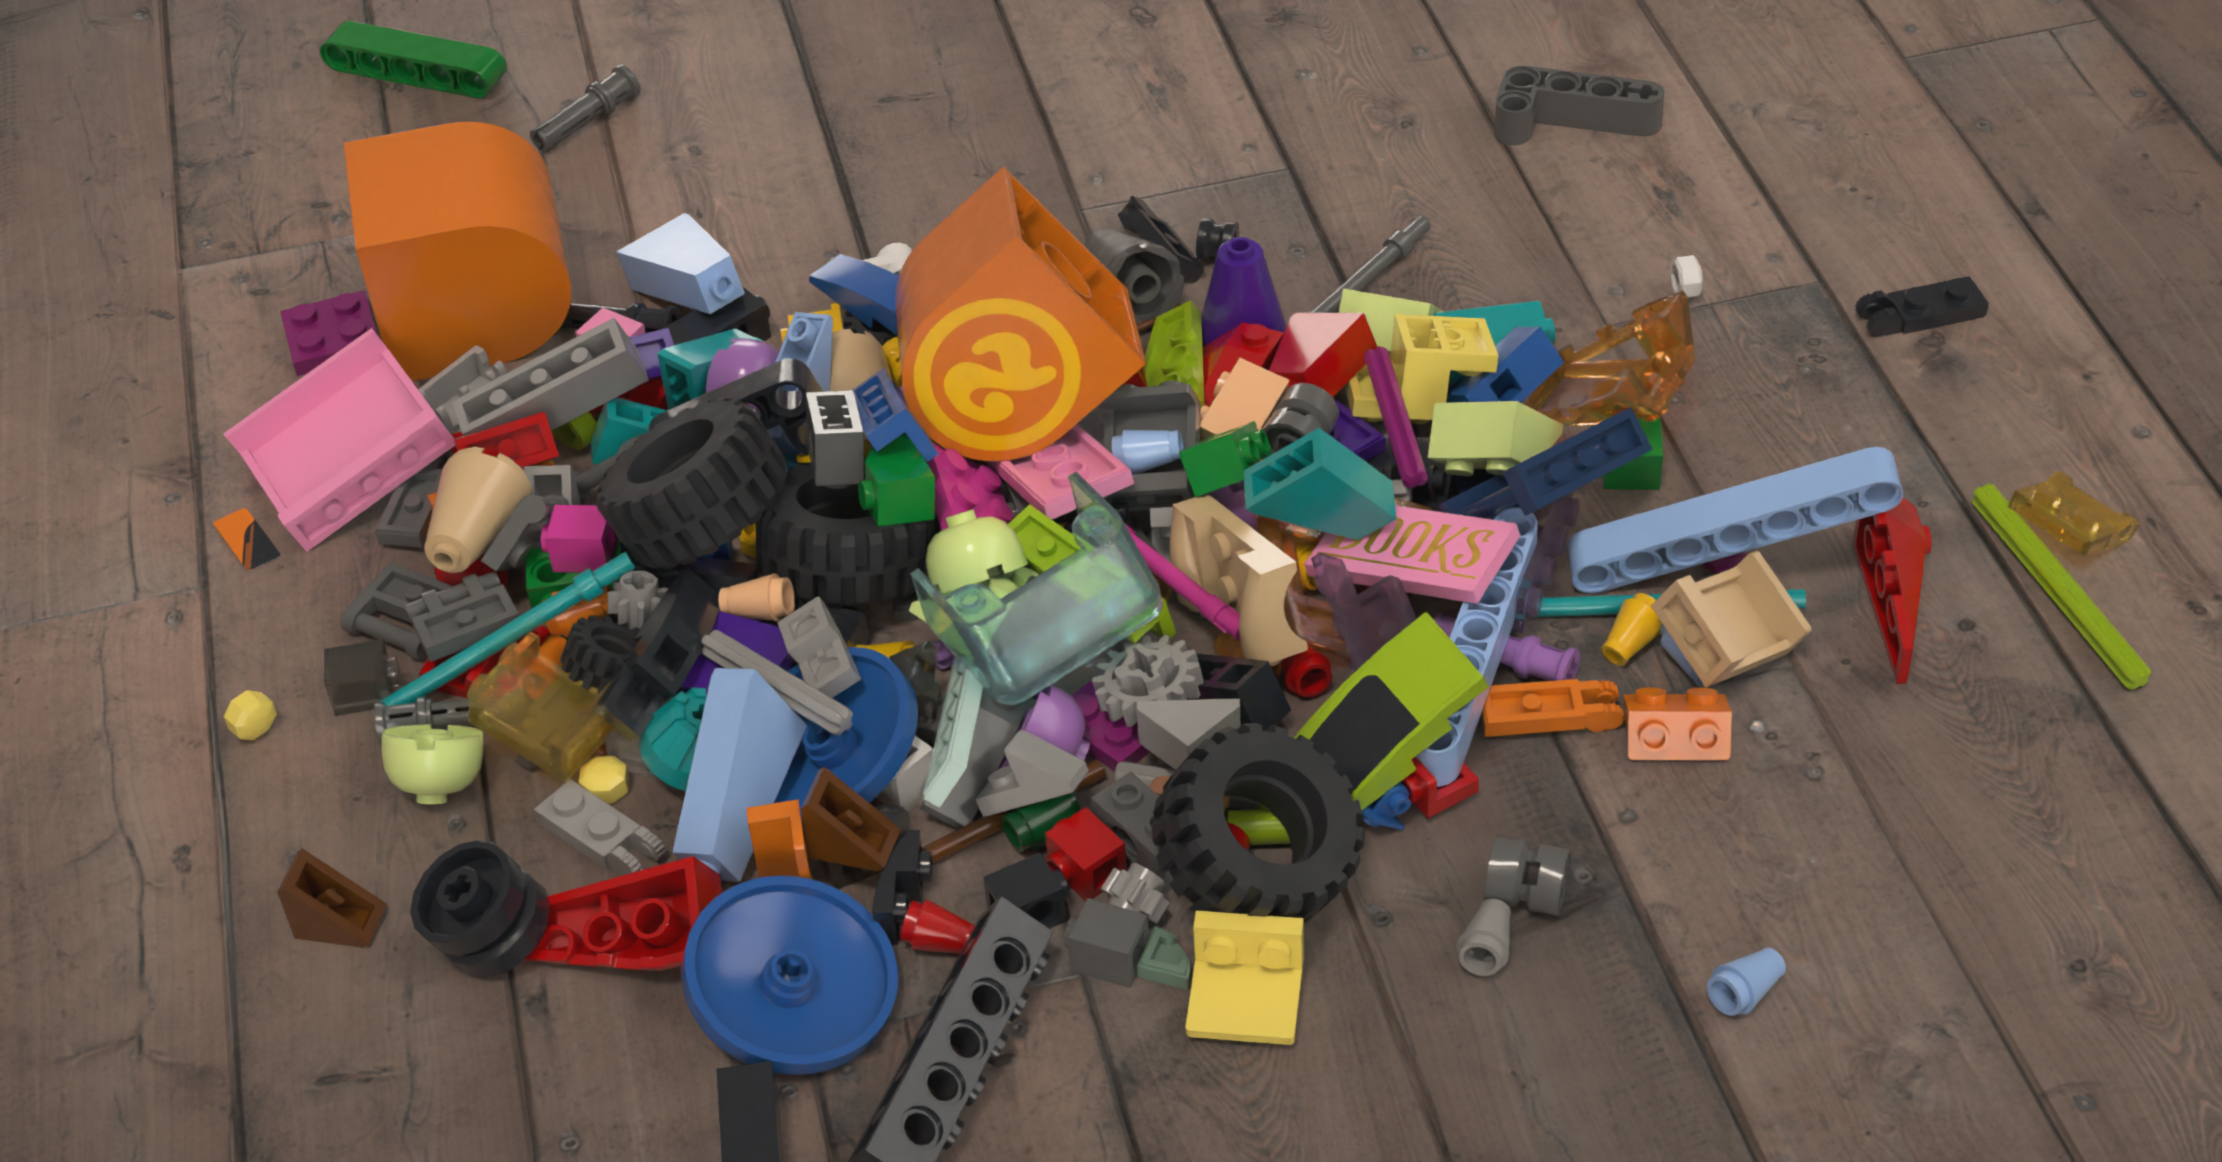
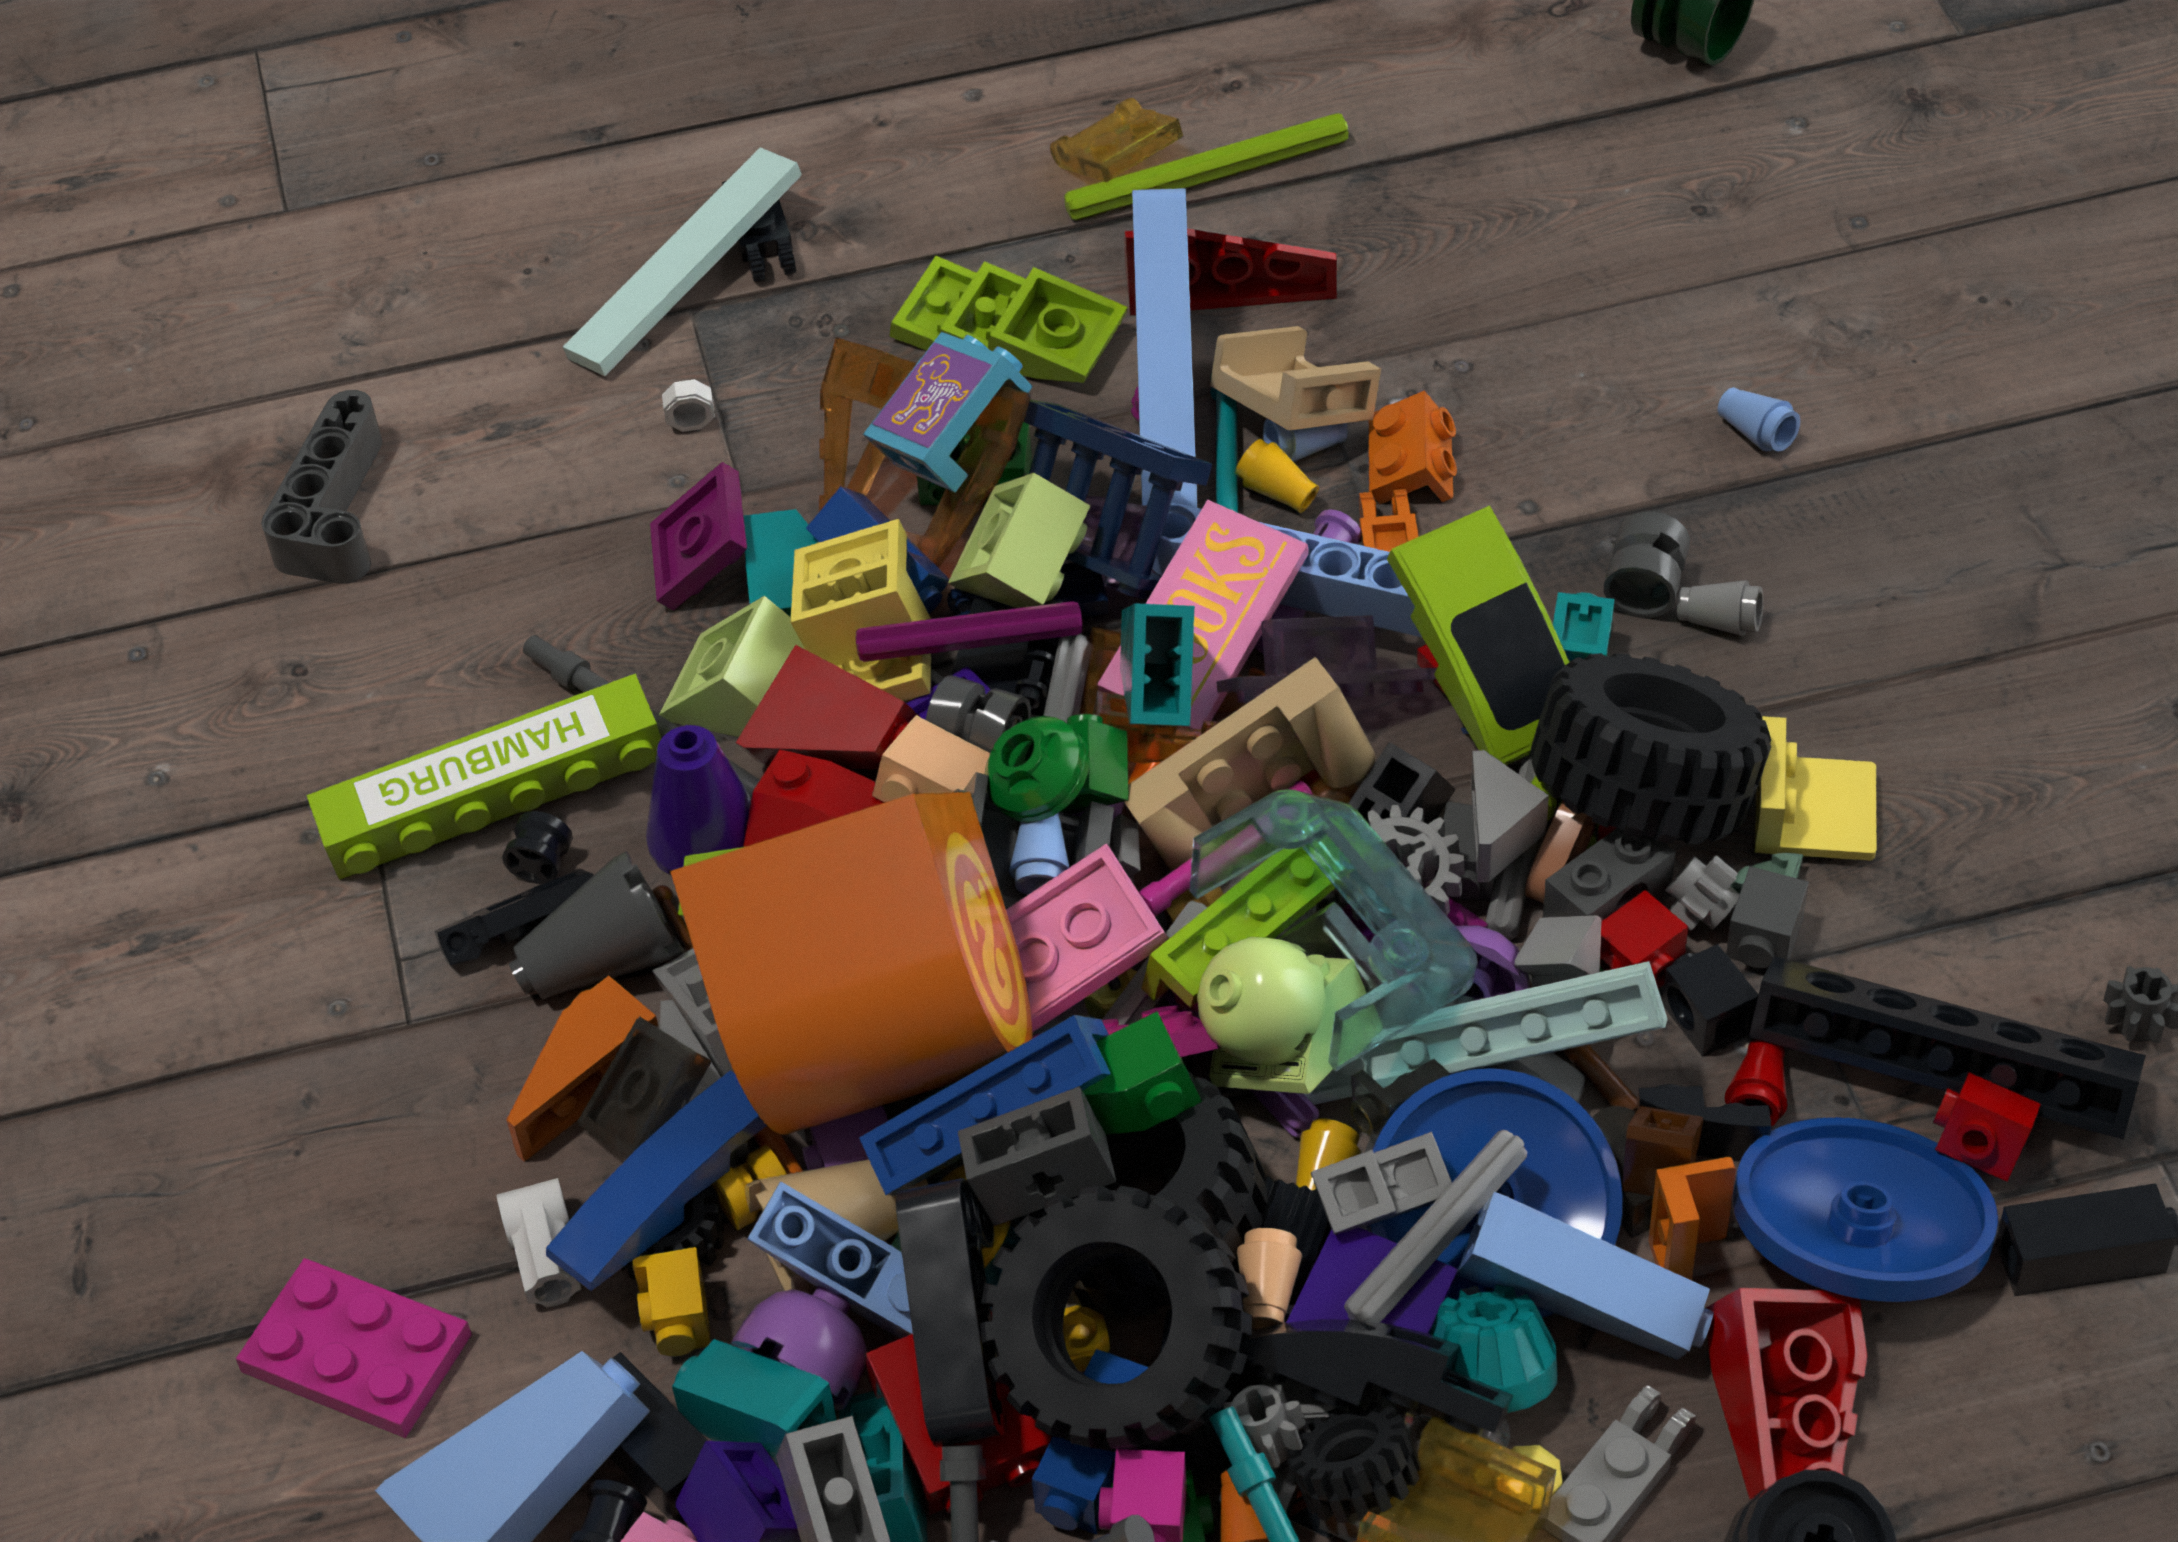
camera: 90 degrees left, 5 degrees up
(814, 211) = (354, 1347): none -> dark pink plate
(863, 1066) = (1985, 1125): none -> red brick
(1196, 415) = (1047, 779): none -> green piece
(1278, 207) = (485, 776): none -> lime brick
(1445, 824) = (1583, 623): none -> teal bracket
(1537, 285) = (698, 536): none -> magenta plate
(1652, 370) = (941, 404): none -> panel
(1821, 427) = (1039, 319): none -> lime slope
(1858, 257) = (682, 261): none -> light aqua tile

